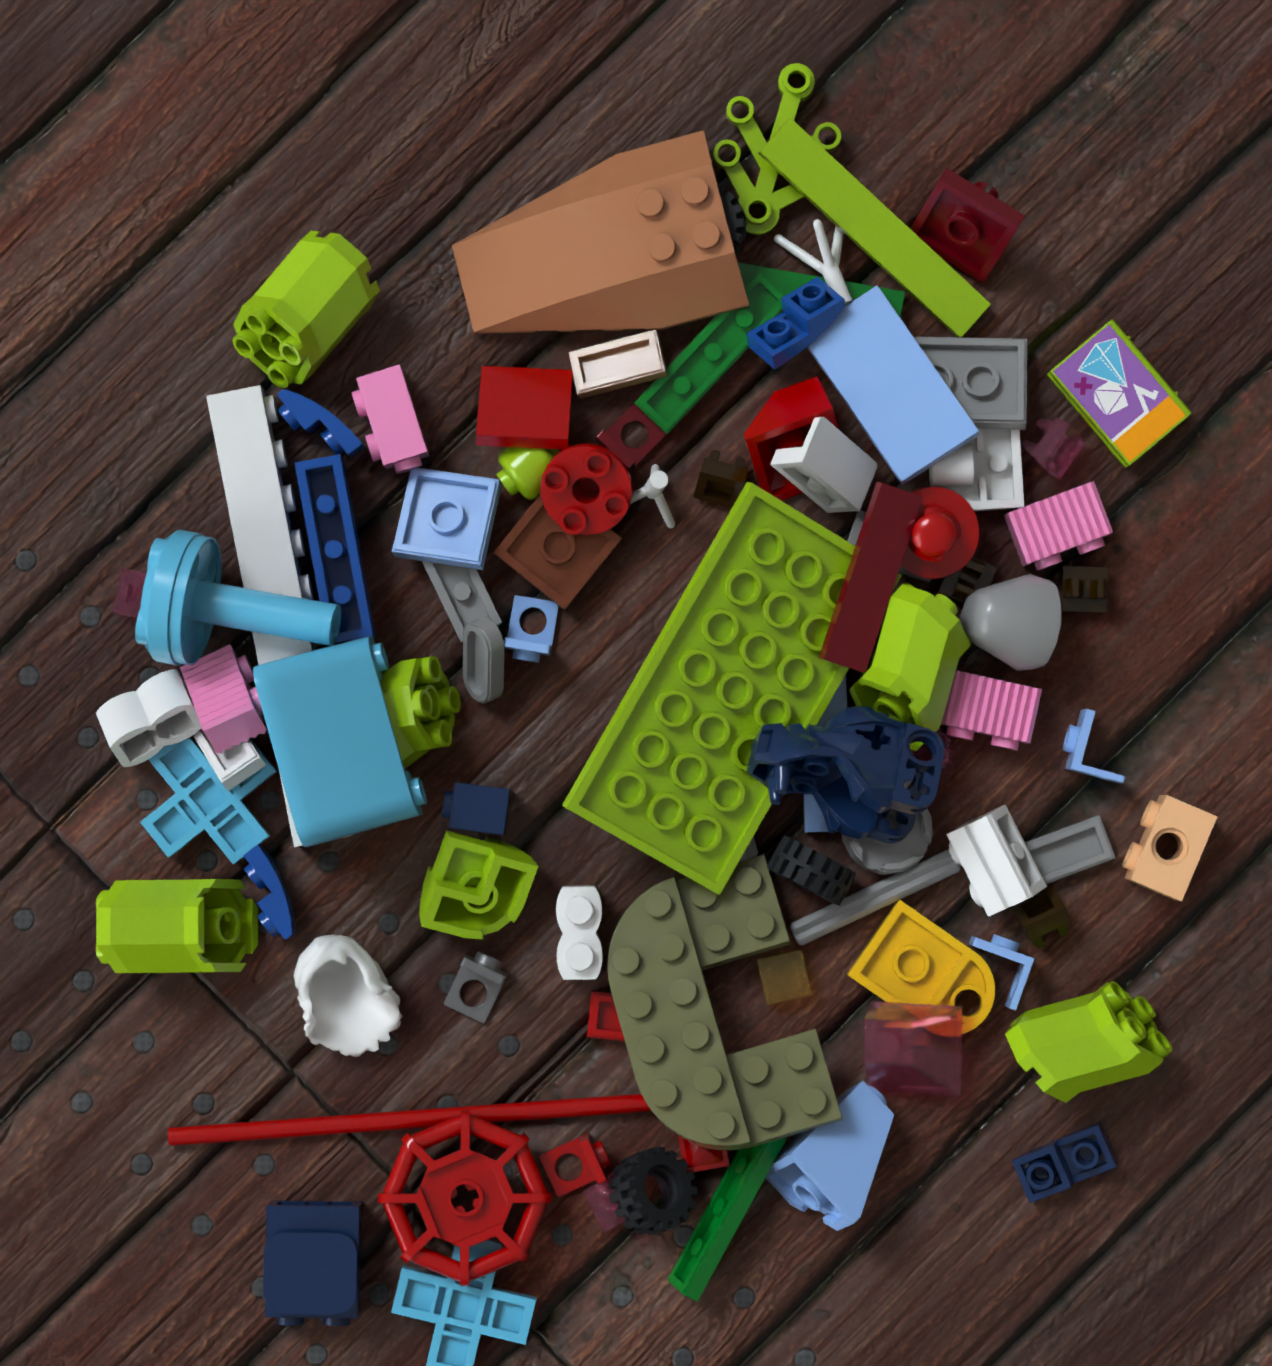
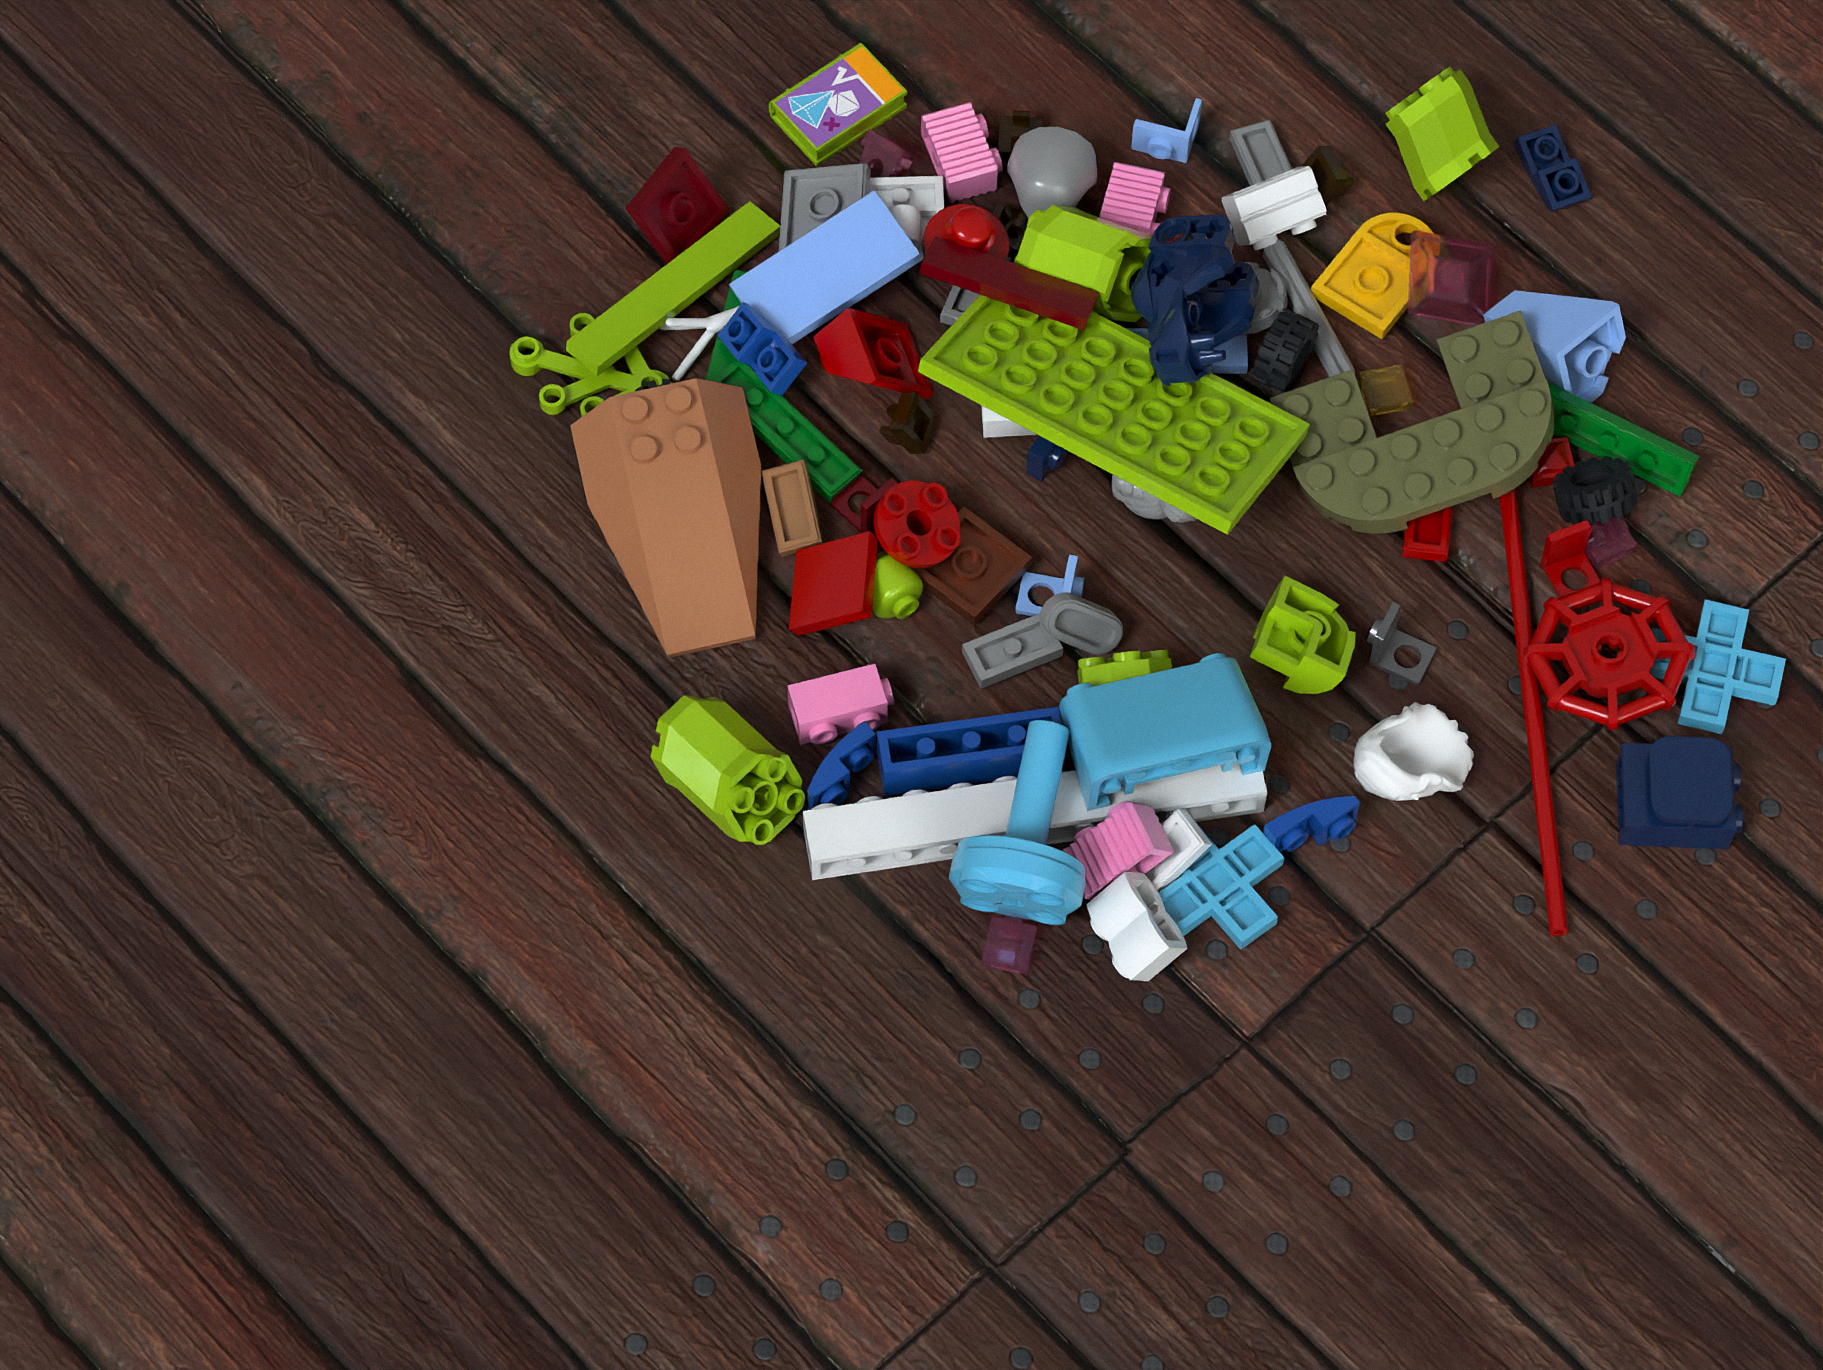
camera: 85 degrees left, 25 degrees down
(175, 926) = (1348, 905): lime brick -> none
(447, 518) = (940, 656): light blue tile -> none
(477, 808) = (1228, 631): dark blue brick -> none
(580, 945) = (1340, 552): white brick -> none
(653, 490) = (917, 464): white plant -> none
(828, 468) = (909, 324): white panel -> none
(1008, 949) = (1370, 195): light blue bracket -> none
(1190, 829) = (1248, 56): light nougat brick -> none

